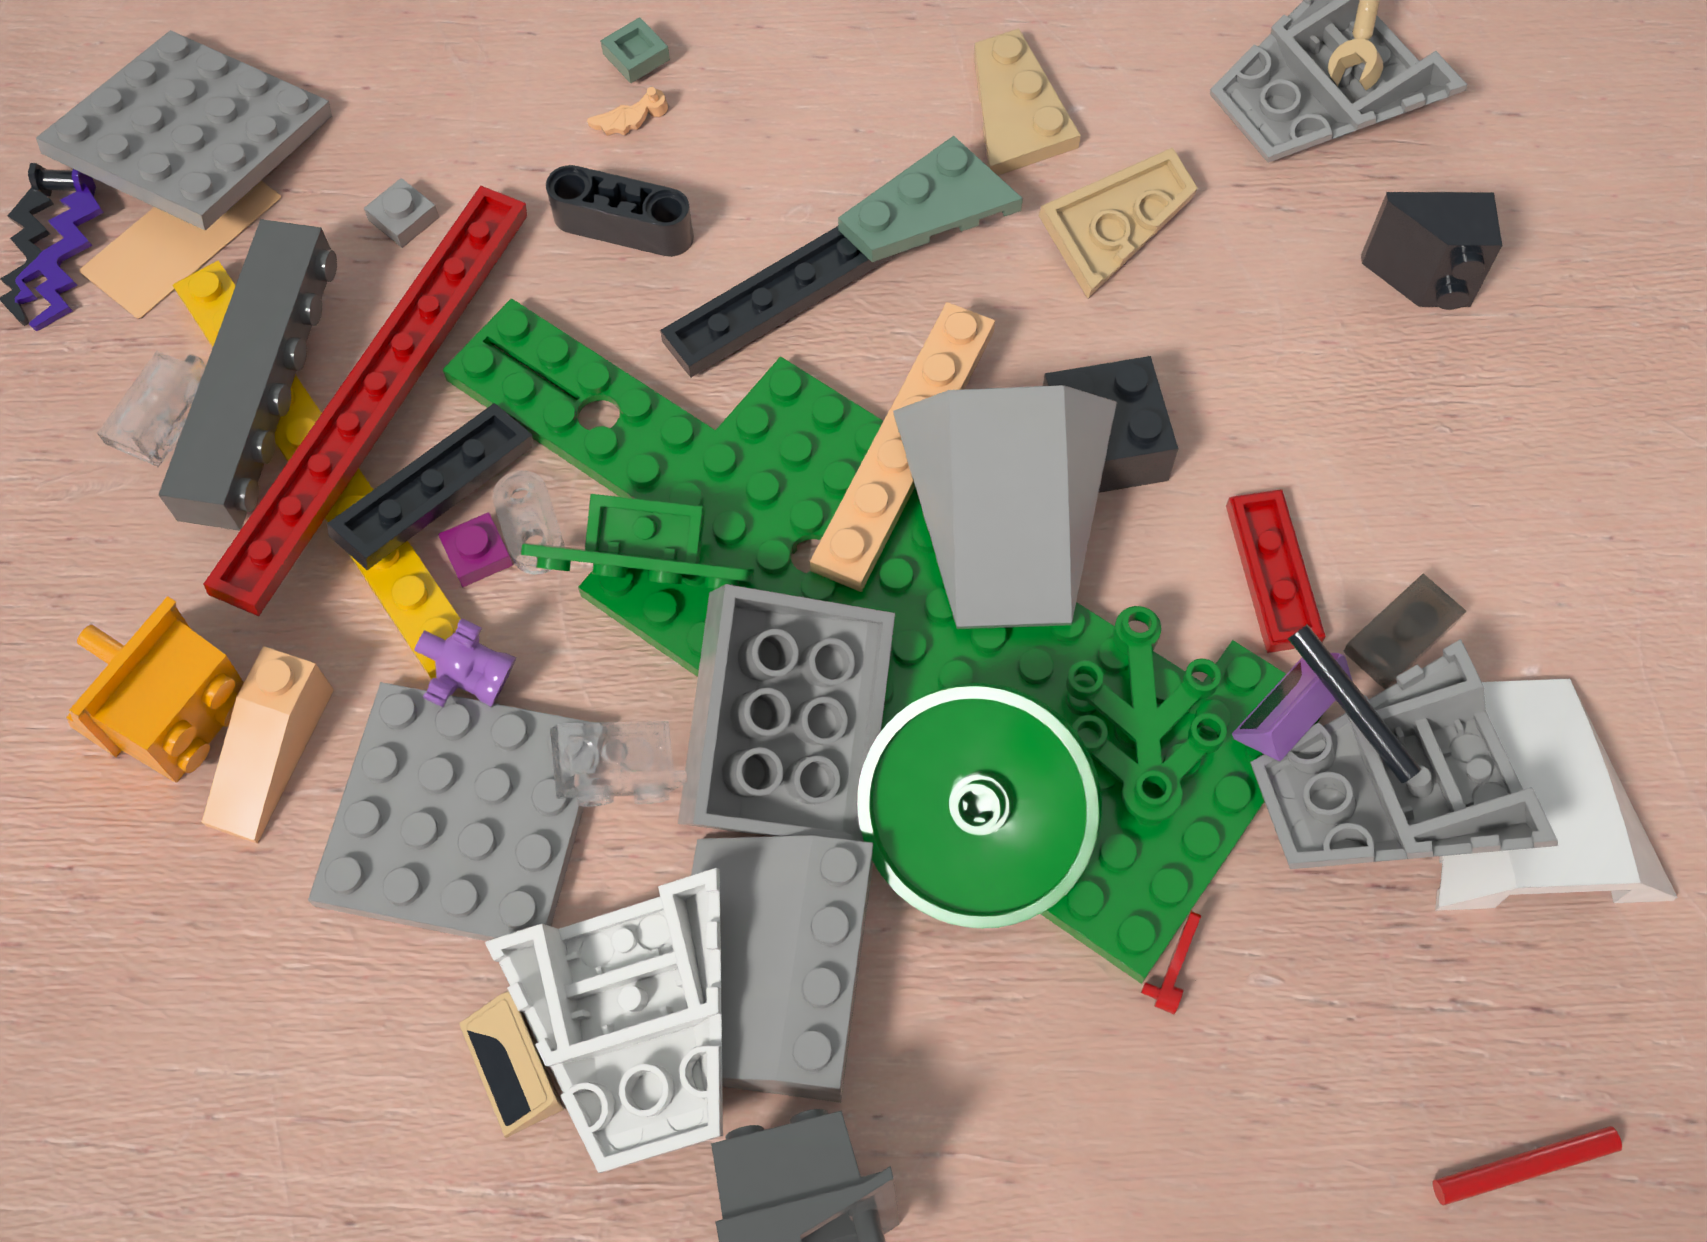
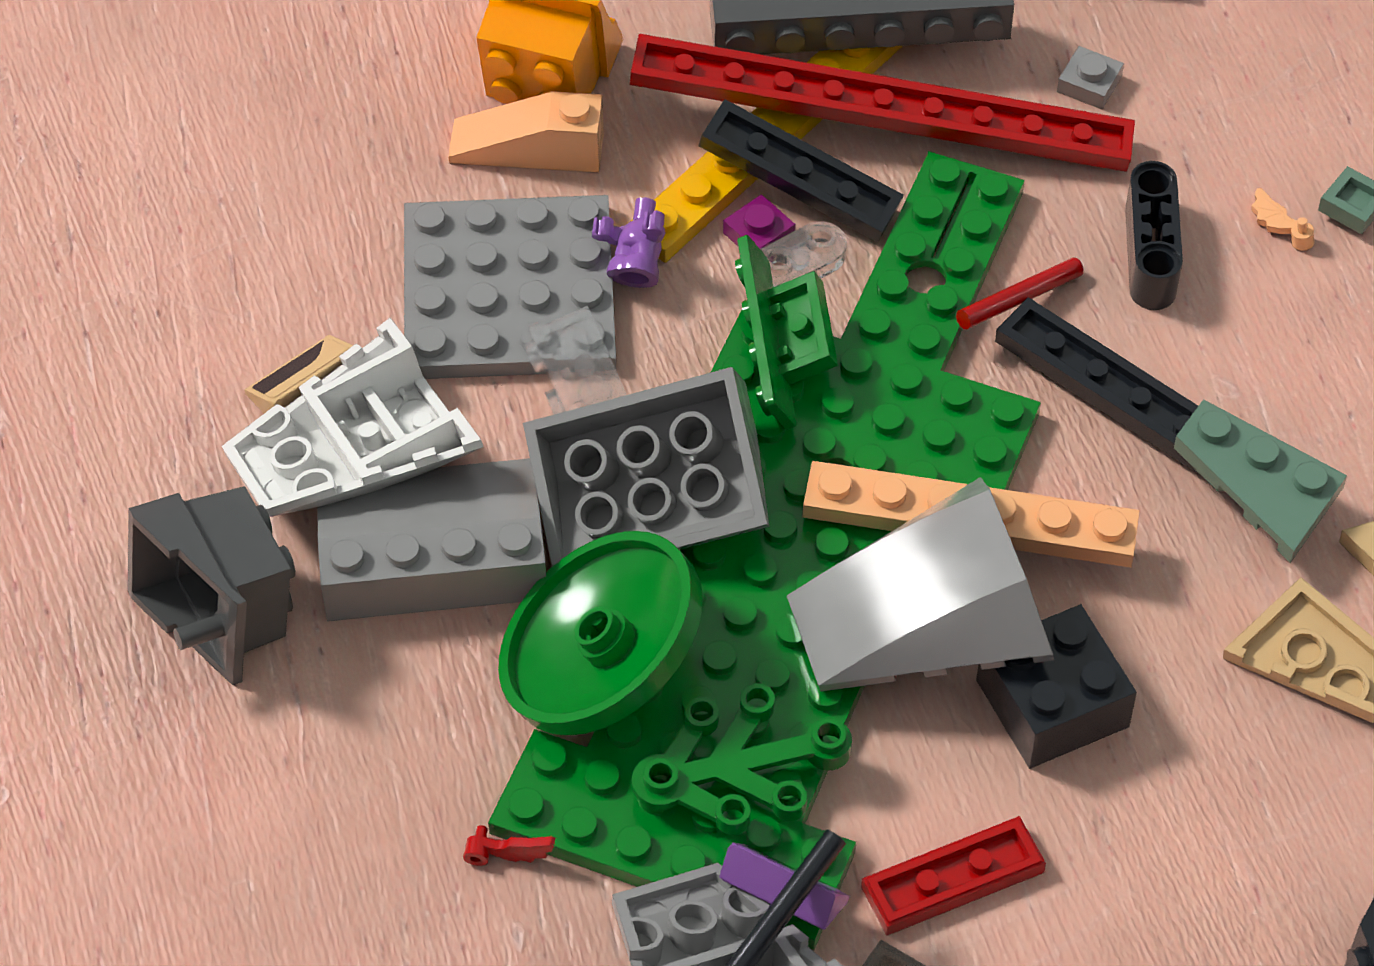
camera: 75 degrees right, 10 degrees down
(651, 338) = (1019, 292): none -> red bar

